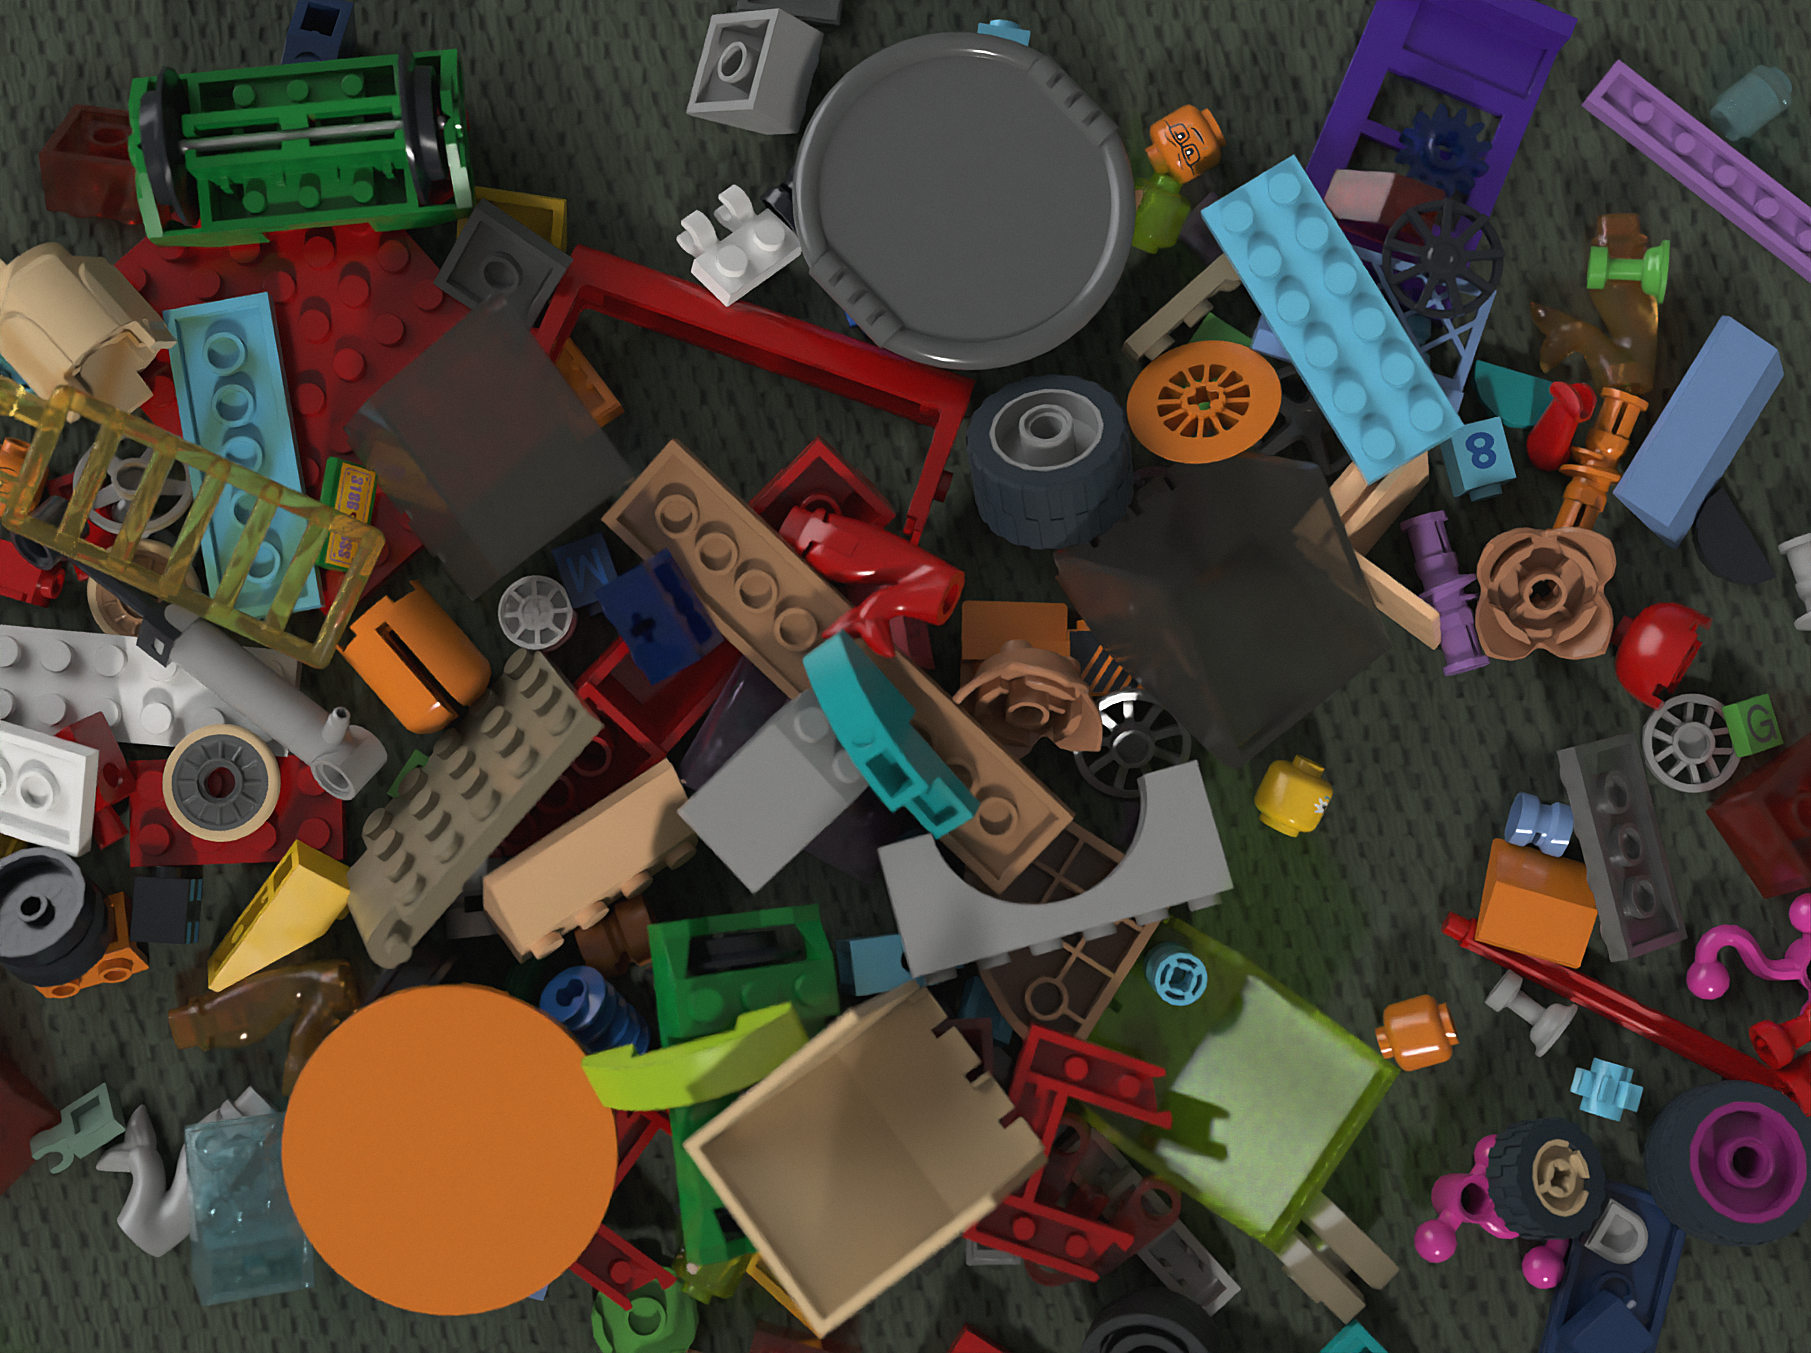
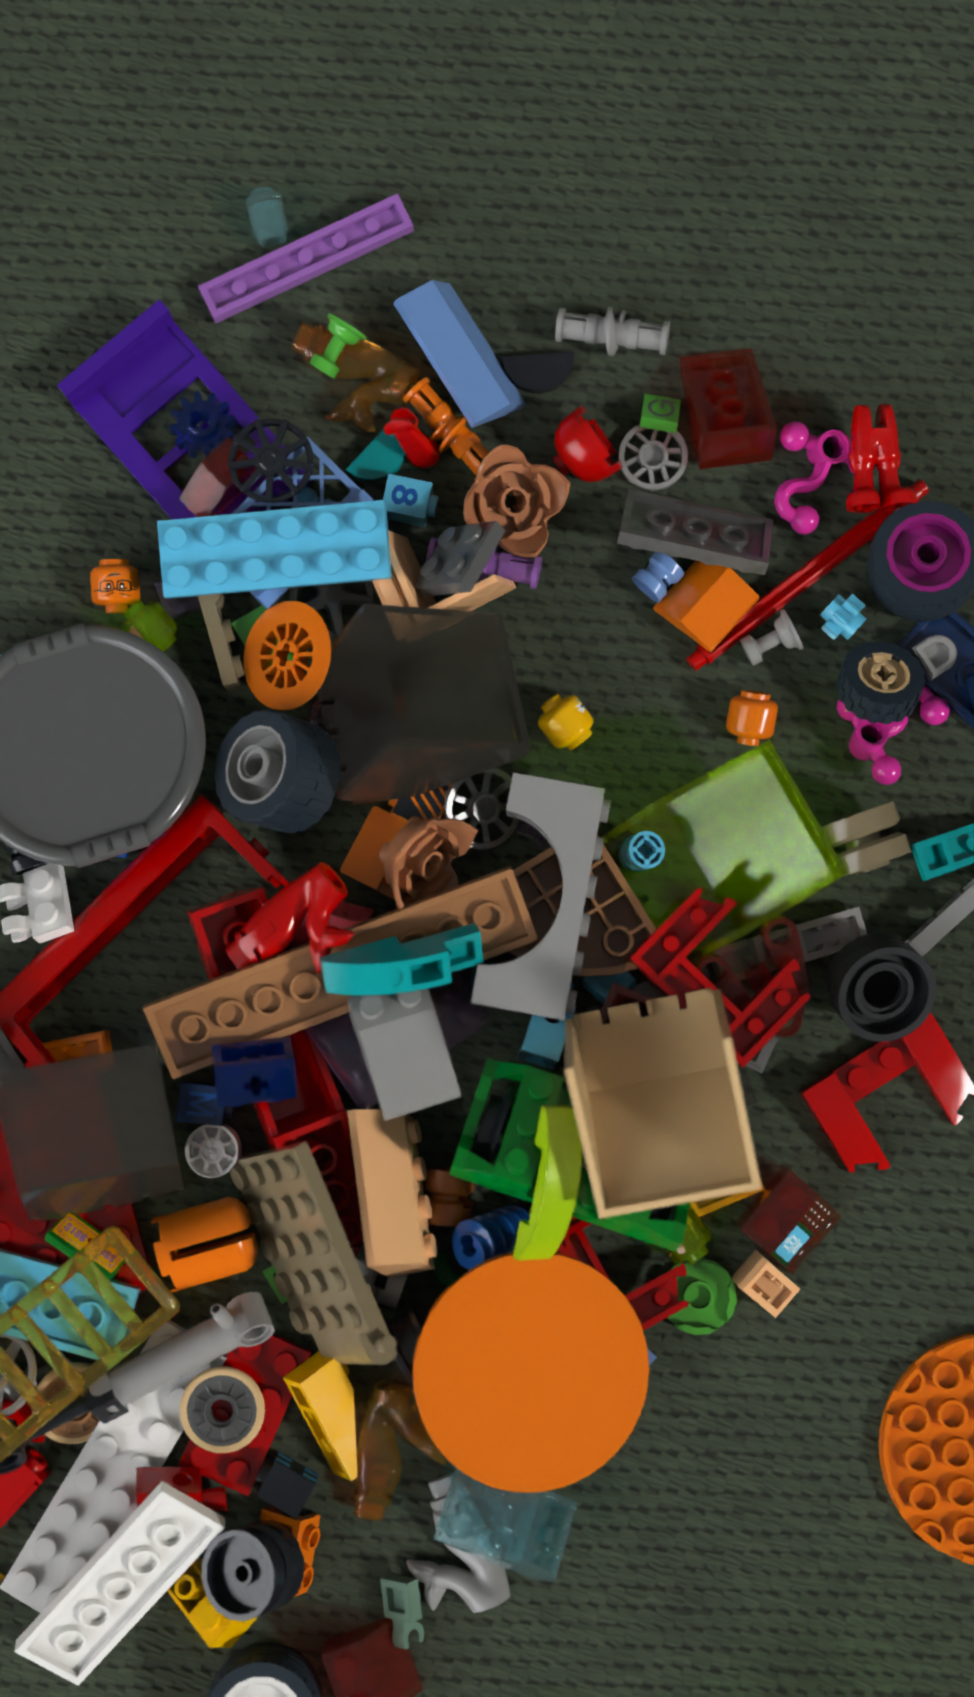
camera: 60 degrees left, 0 degrees up
(1436, 559) = (459, 558): none -> dark grey plate

